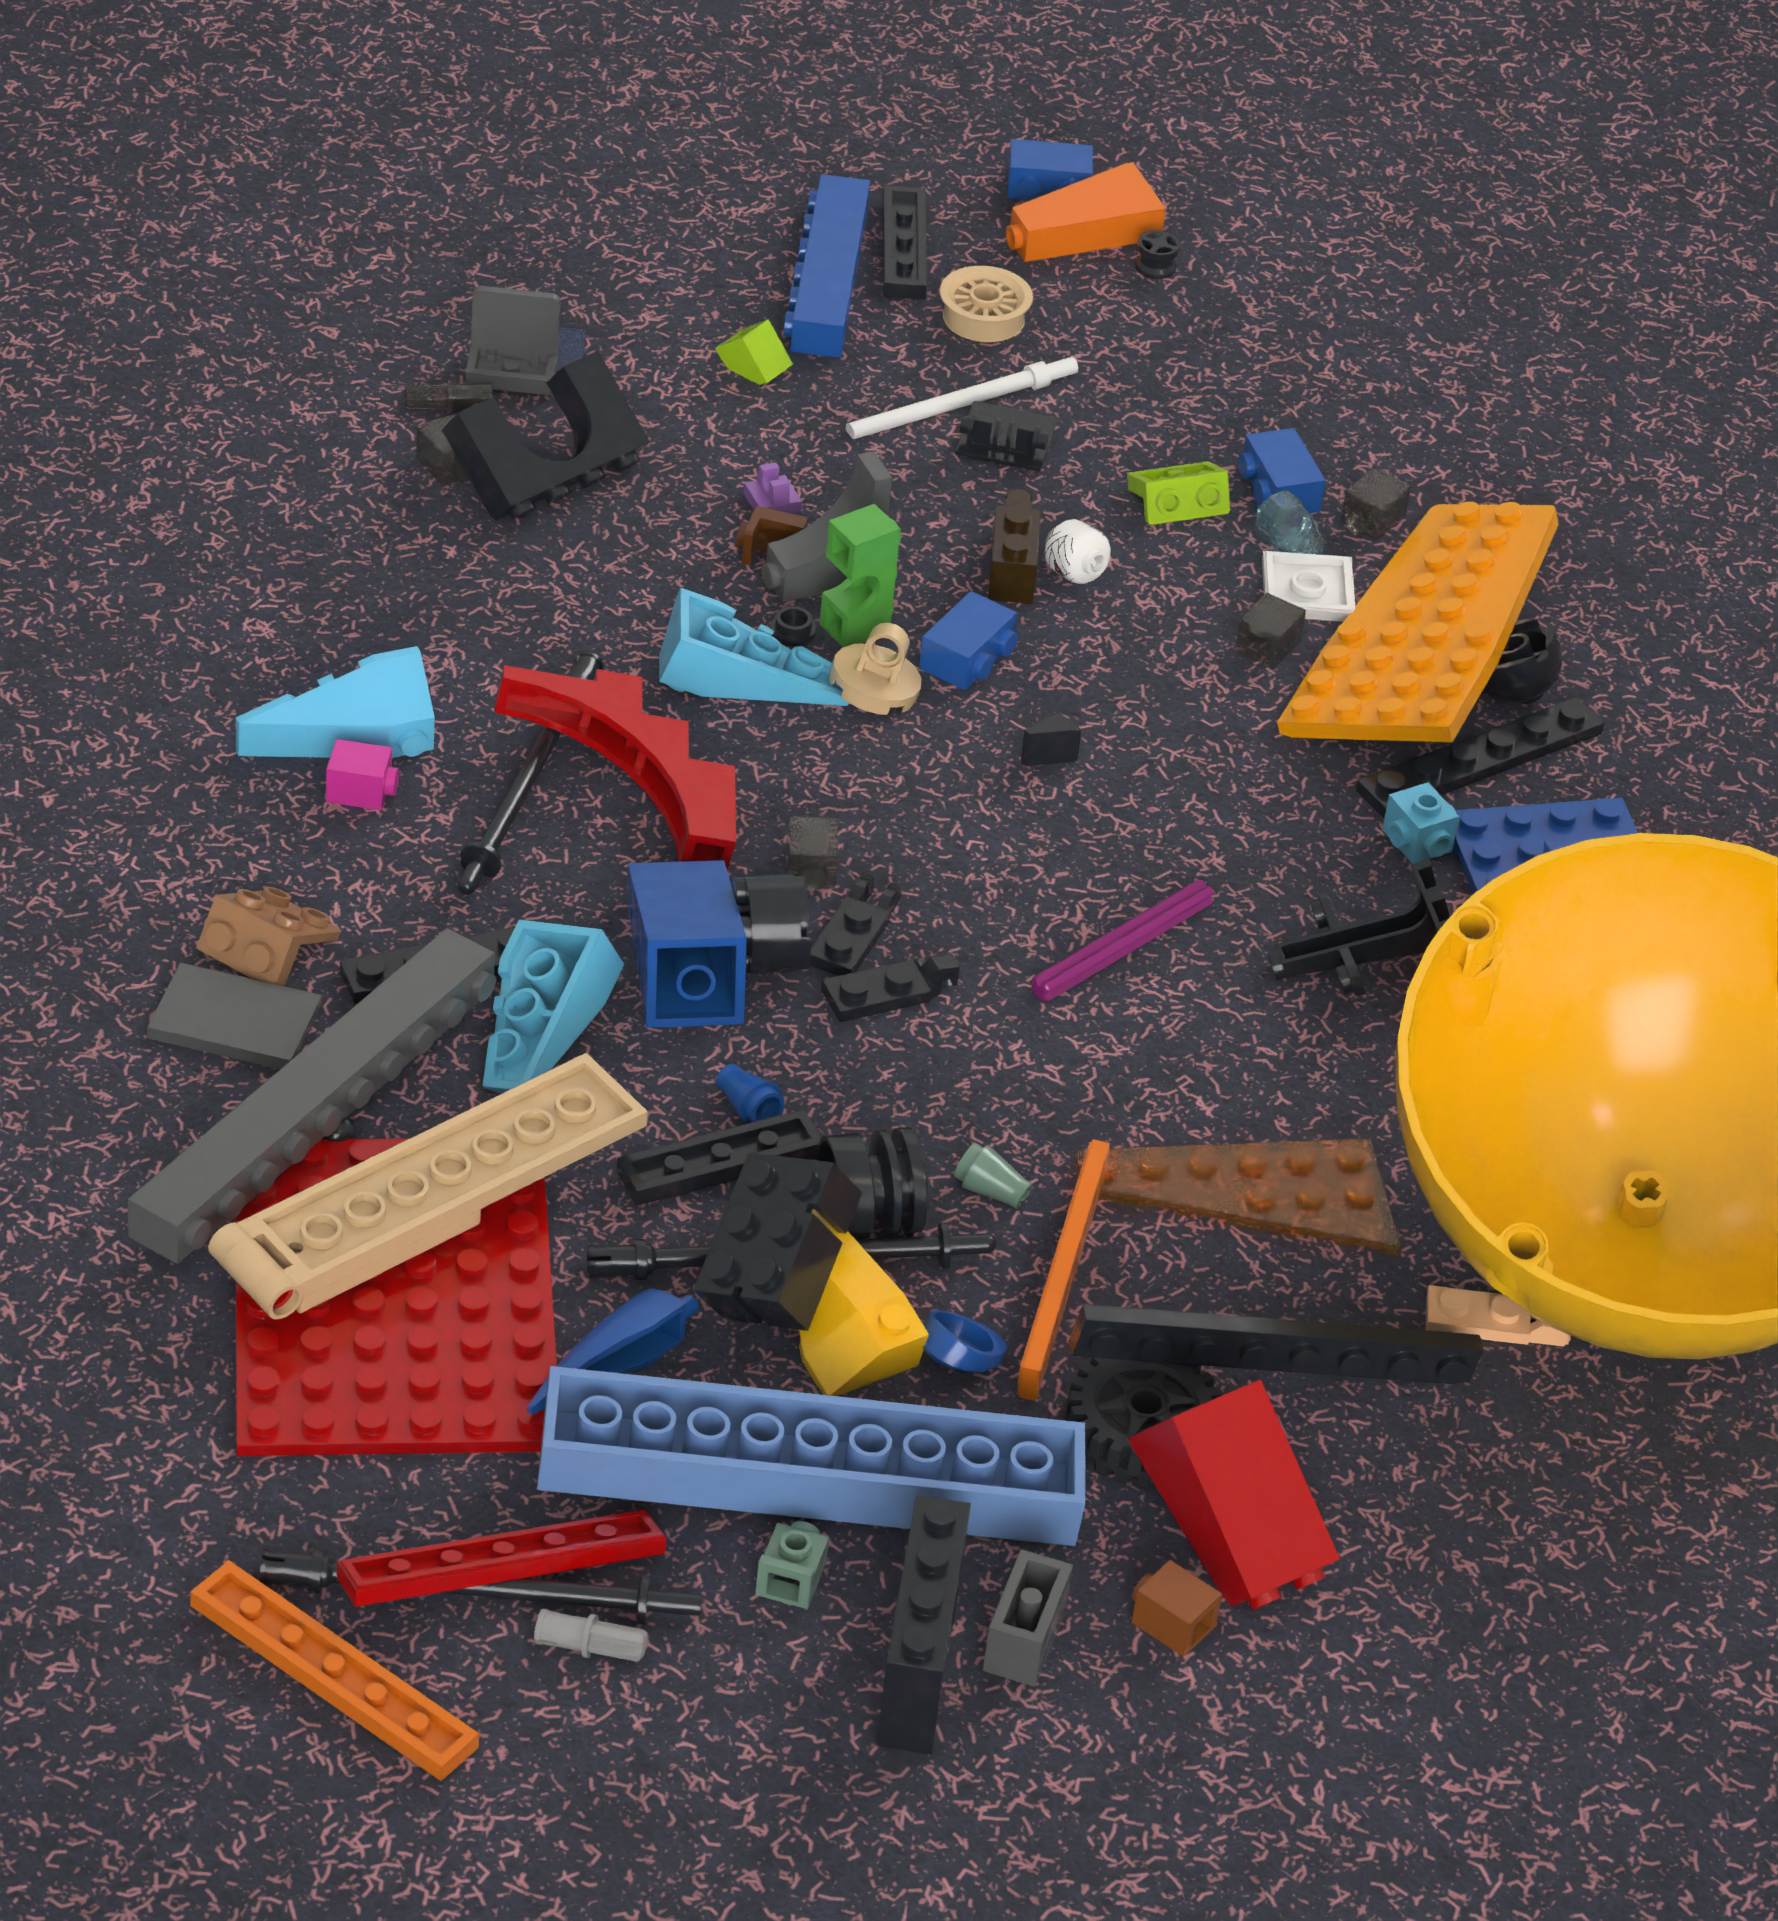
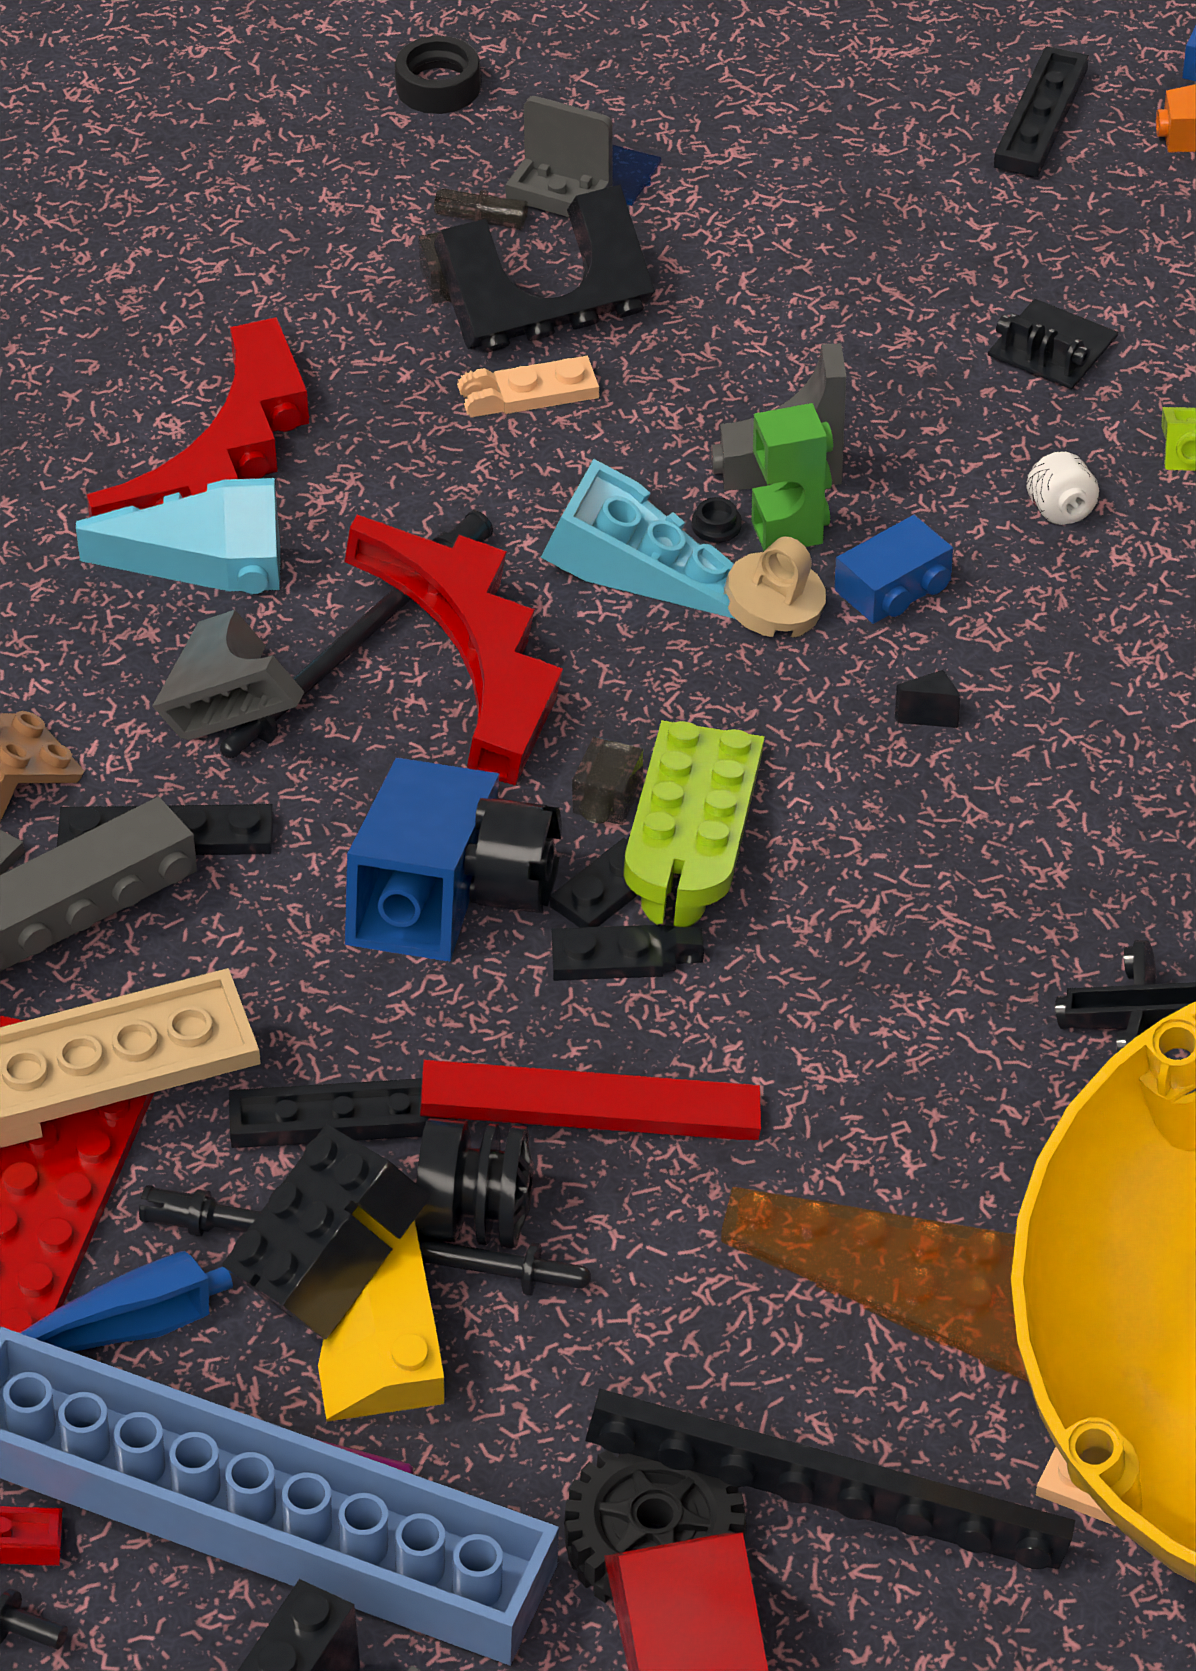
camera: 25 degrees right, 5 degrees up
(344, 630) = (240, 440): none -> red arch
(350, 304) = (437, 95): none -> black tyre
(360, 775) = (177, 602): dark pink brick -> none
(438, 834) = (224, 680): none -> dark grey arch
(548, 995) = (258, 883): medium azure wedge -> none
(570, 542) = (528, 387): none -> light nougat hinge
(750, 1094) = (407, 1045): blue cone -> none
(755, 353) = (821, 210): lime brick -> none
(766, 527) = (730, 405): reddish brown bracket -> none
(772, 490) = (766, 368): medium lavender tile -> none
(797, 1554) = (182, 1627): sand green brick -> none
(827, 266) = (944, 126): blue brick -> none
(901, 868) = (691, 818): none -> lime plate
(928, 1105) = (590, 1100): none -> red tile
(962, 1343) = (477, 1386): blue hat -> none
(985, 303) = (1095, 191): tan wheel -> none
(990, 1175) = (623, 1196): sand green cone -> none
(1014, 549) = (991, 475): dark brown hinge -> none
(1033, 375) = (1115, 281): white bar -> none
(1063, 1270) = (643, 1327): orange tile -> none
(1122, 940) = (905, 948): magenta axle -> none

